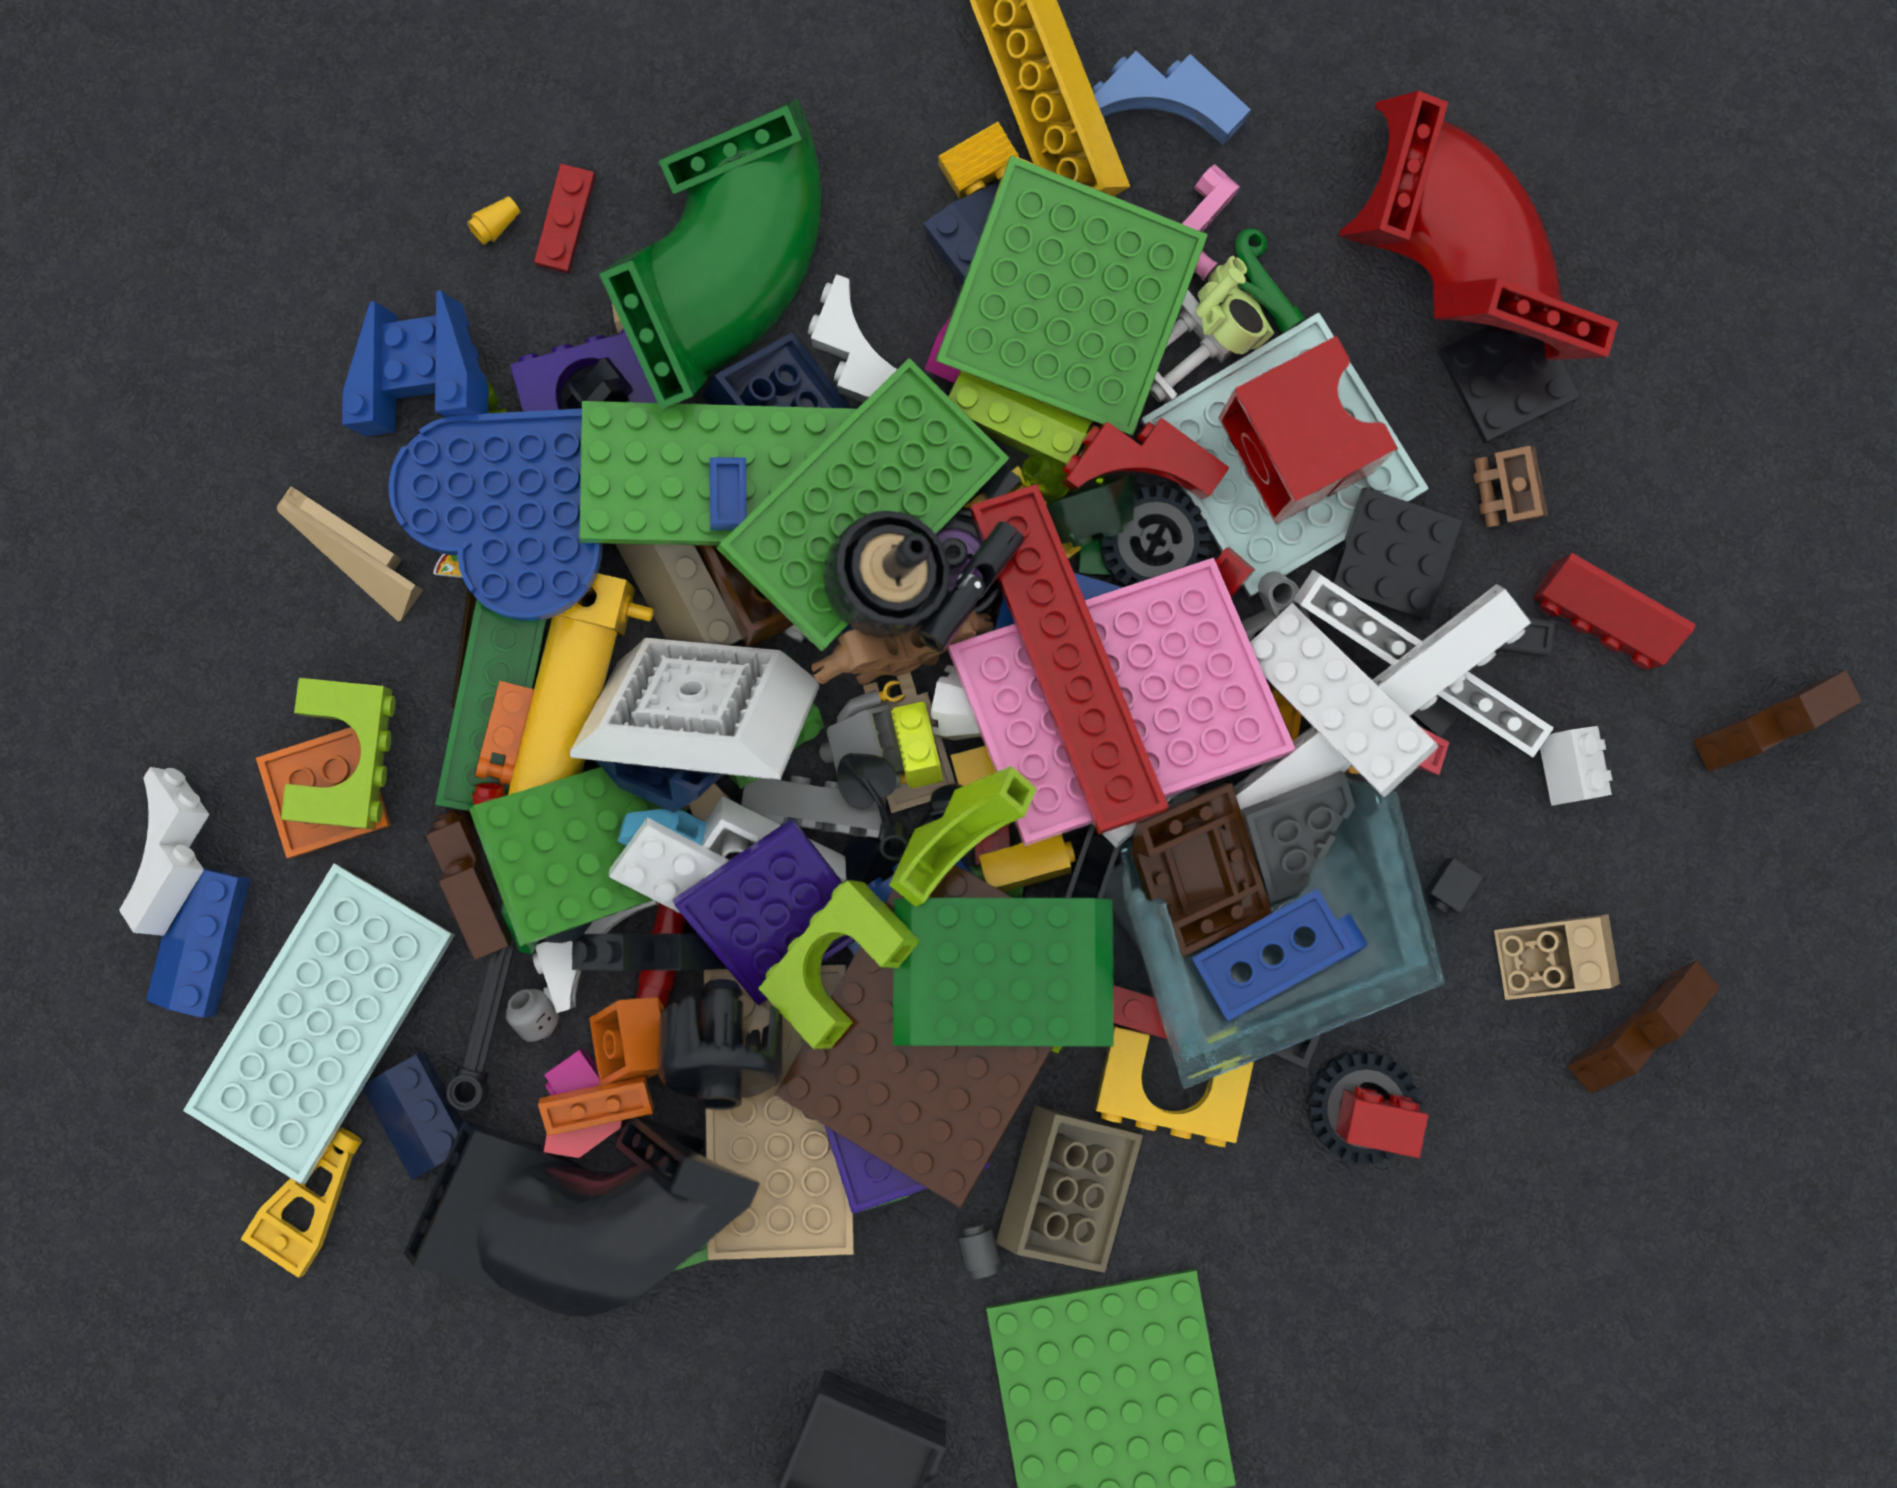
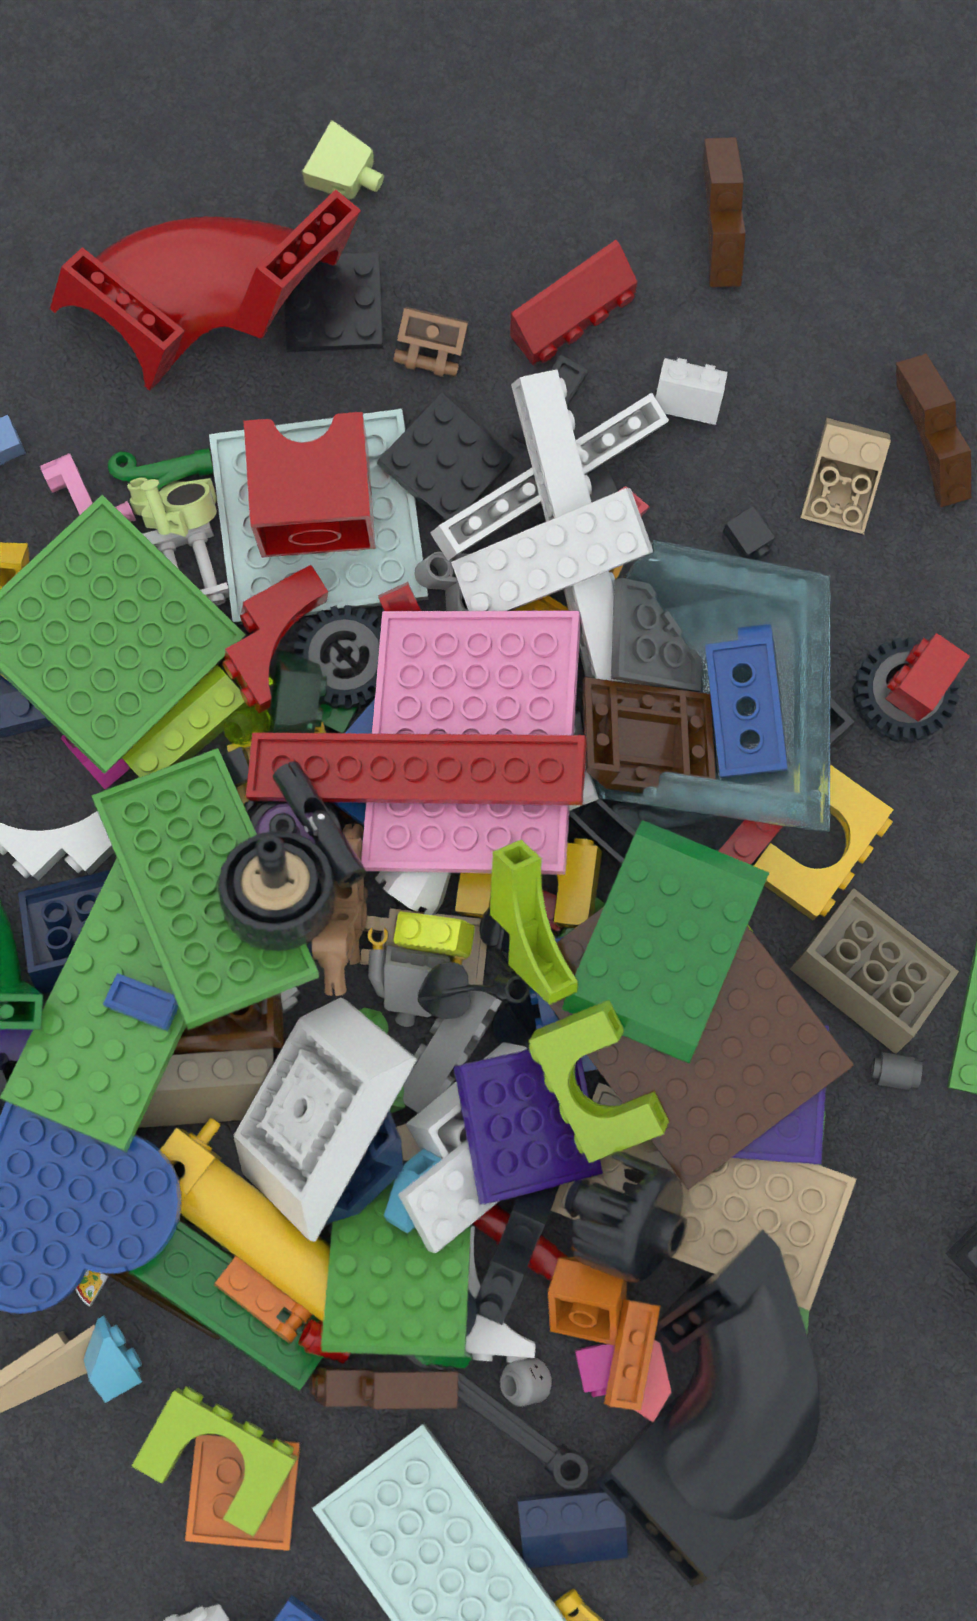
camera: 65 degrees left, 5 degrees down
(387, 616) = (109, 1363): none -> medium azure slope
(1653, 320) = (341, 164): none -> yellowish green torso

